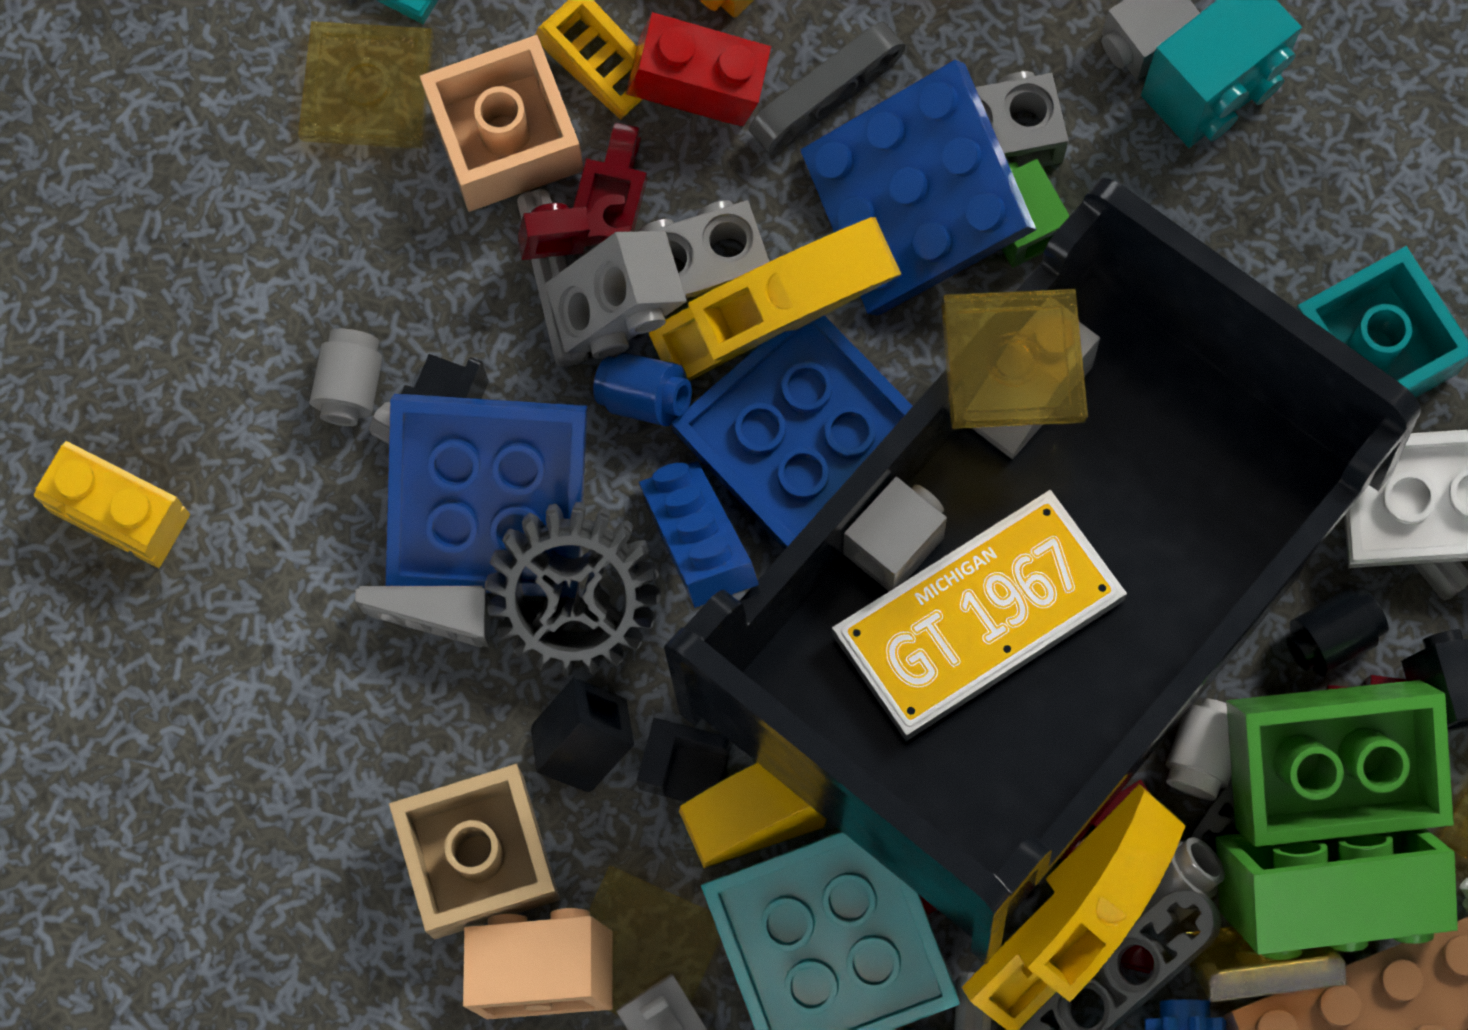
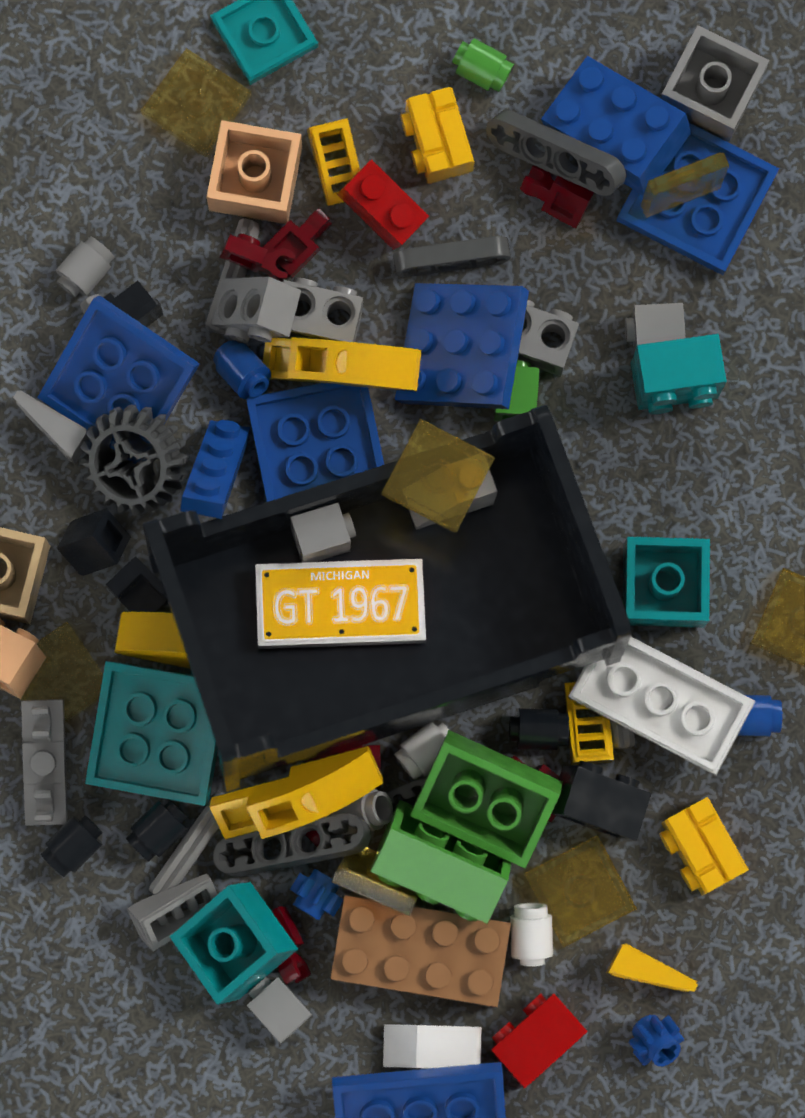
camera: 25 degrees right, 5 degrees up
(1426, 590) = (593, 756): none -> yellow slope

